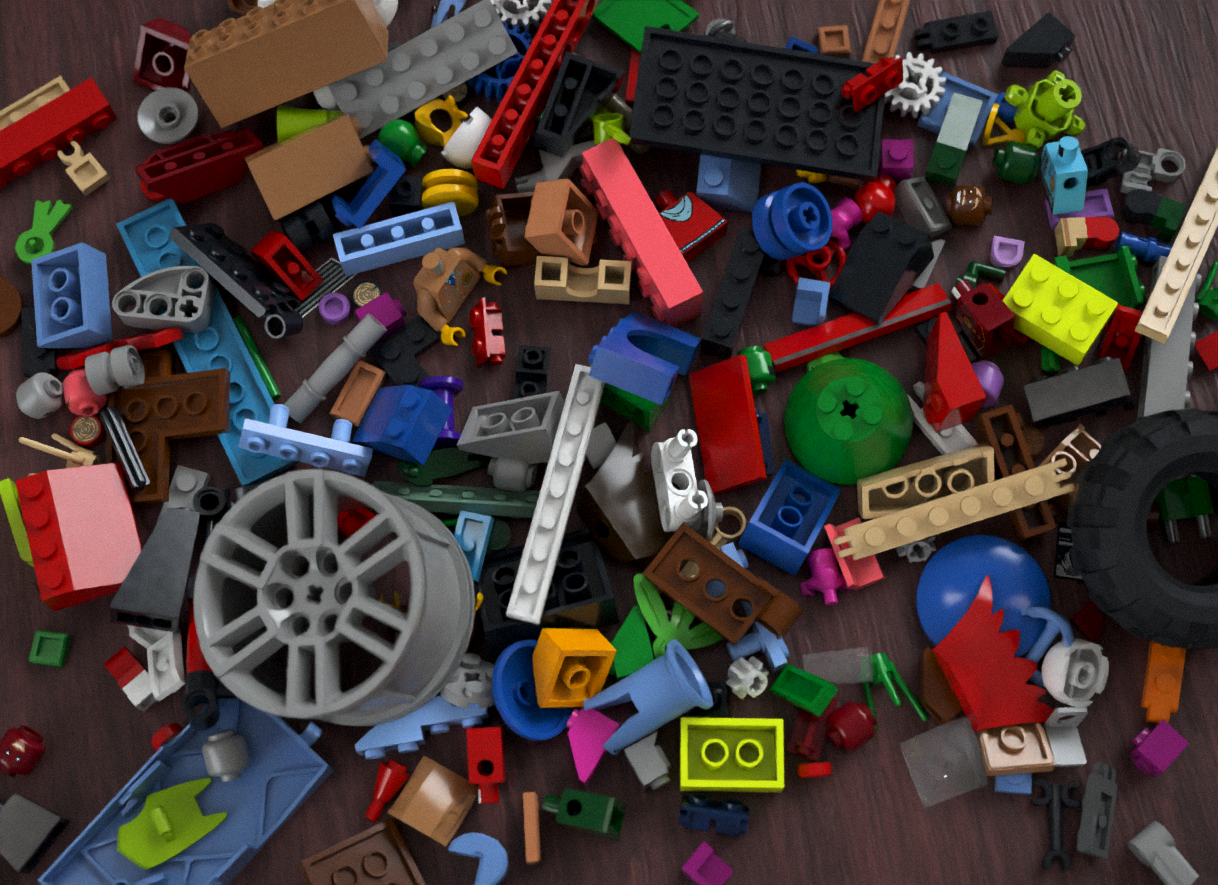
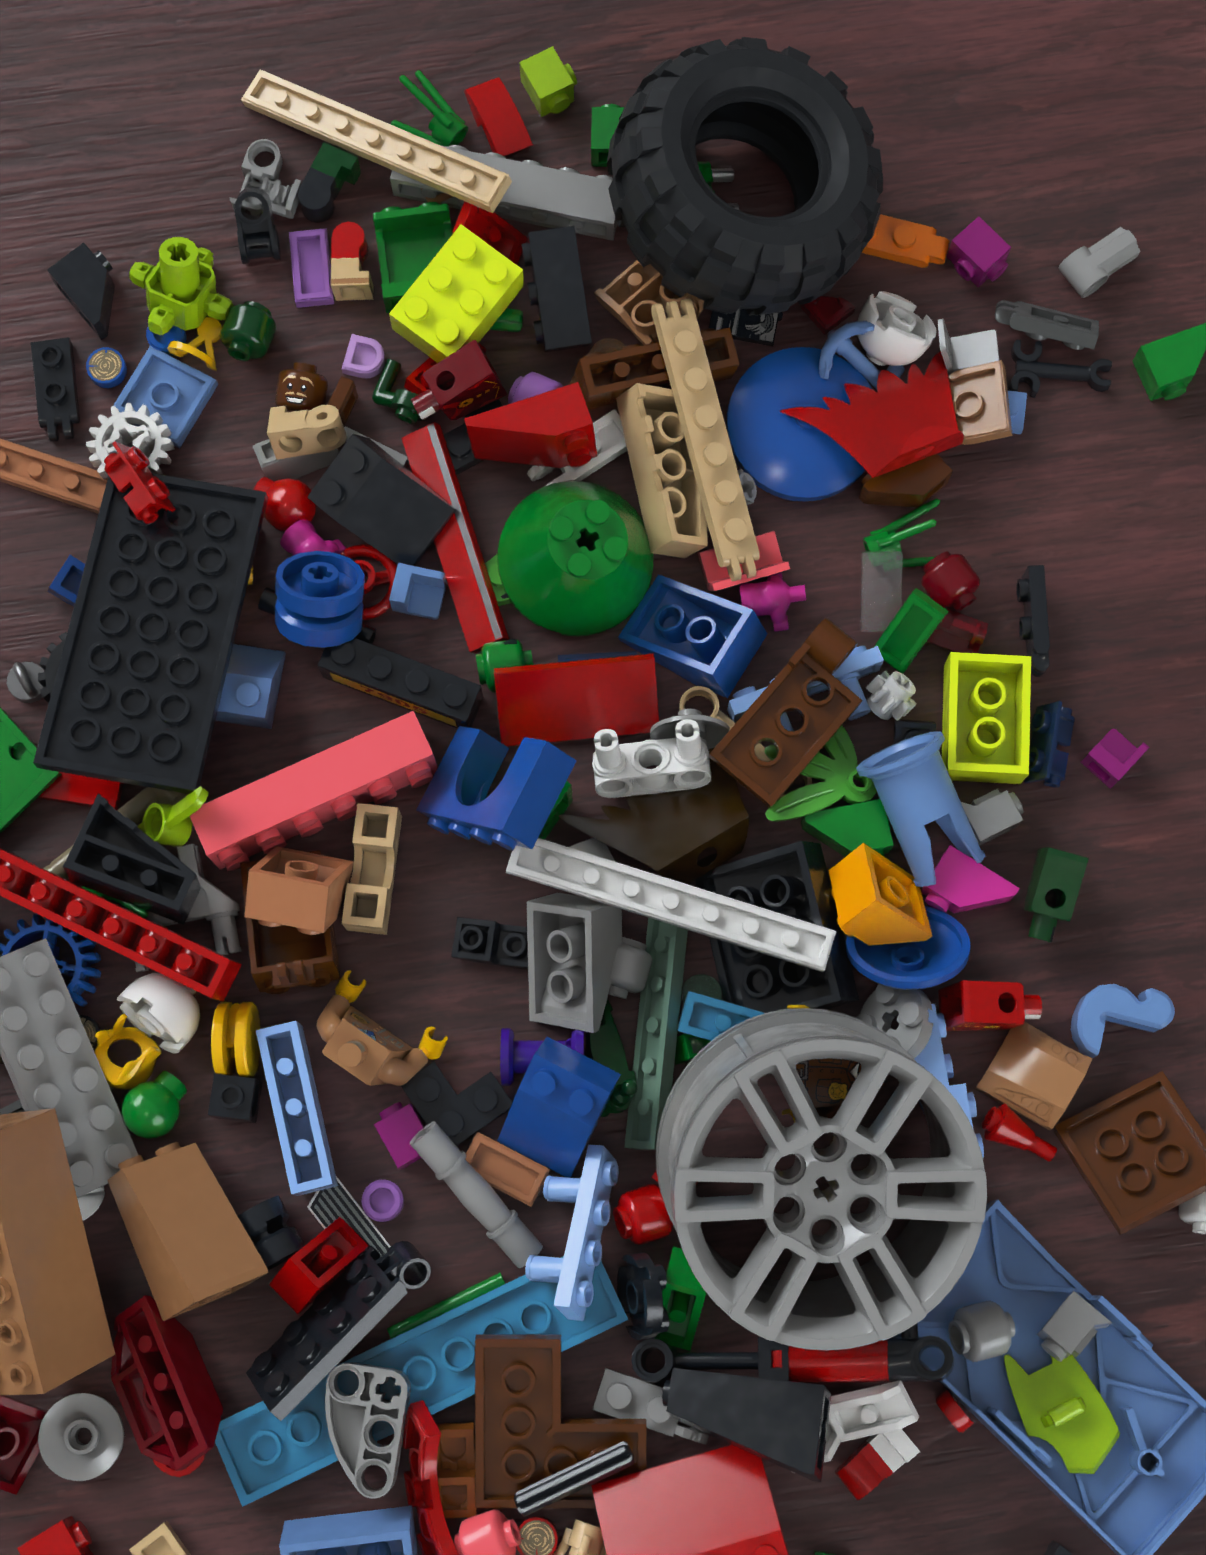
camera: 90 degrees left, 5 degrees up
(109, 371) = (467, 1501): light grey wheel -> none
(227, 826) = (1071, 1327): none -> light grey window
(295, 120) = (110, 1243): lime plant -> none
(365, 292) = (369, 1156): tile -> none
(373, 190) = (227, 1140): blue panel -> none
(485, 345) = (413, 1000): red hinge -> none
(532, 828) = (1068, 956): nougat tile -> none
(690, 222) = (297, 732): red torso -> none
(814, 770) = (999, 627): red tile -> none
(817, 799) = (1034, 624): none -> black hinge
(834, 41) = (53, 539): nougat tile -> none
(896, 159) = (234, 467): magenta brick -> none
(933, 205) = (305, 431): none -> tan leg
(945, 761) = (989, 483): clear slope -> none
(953, 140) = (212, 401): slope -> none
(964, 236) = (344, 398): none -> reddish brown tile
(977, 66) = (106, 367): none -> tile
(1061, 167) = (277, 274): medium azure torso -> none
(1141, 247) = (371, 196): blue pin -> none

